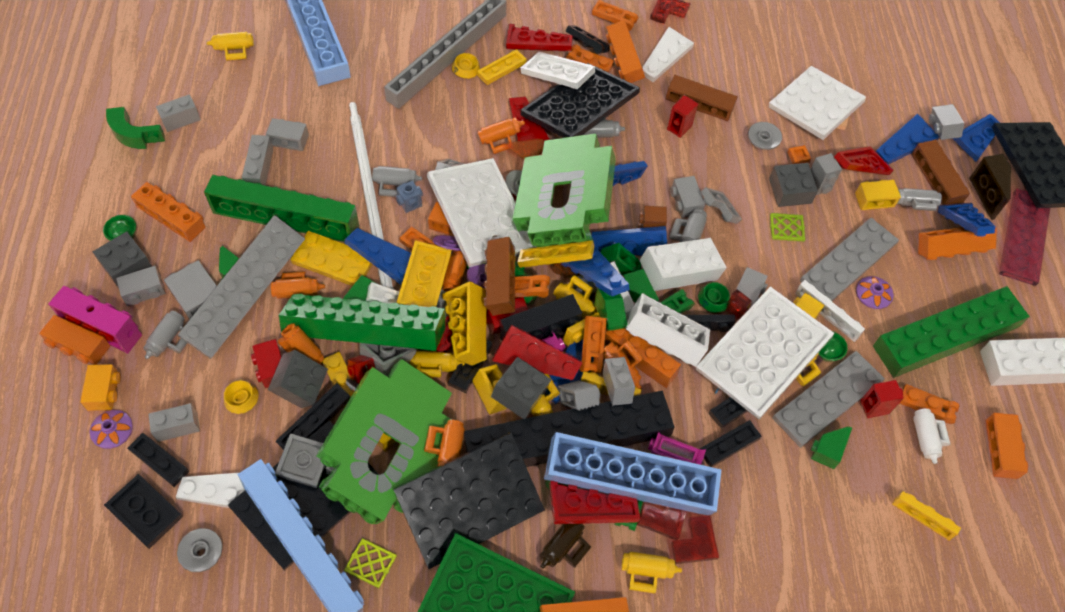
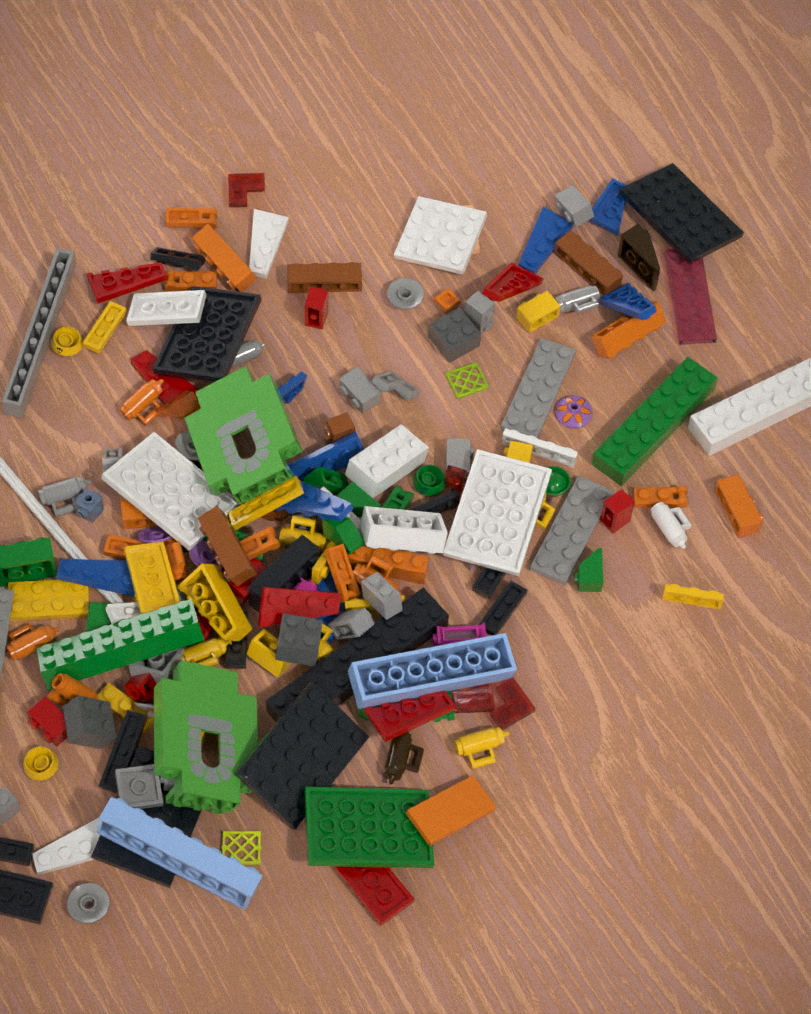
camera: 25 degrees left, 0 degrees up
(451, 441) = (260, 714): orange piece -> none
(693, 226) = (379, 420): light grey piece -> none

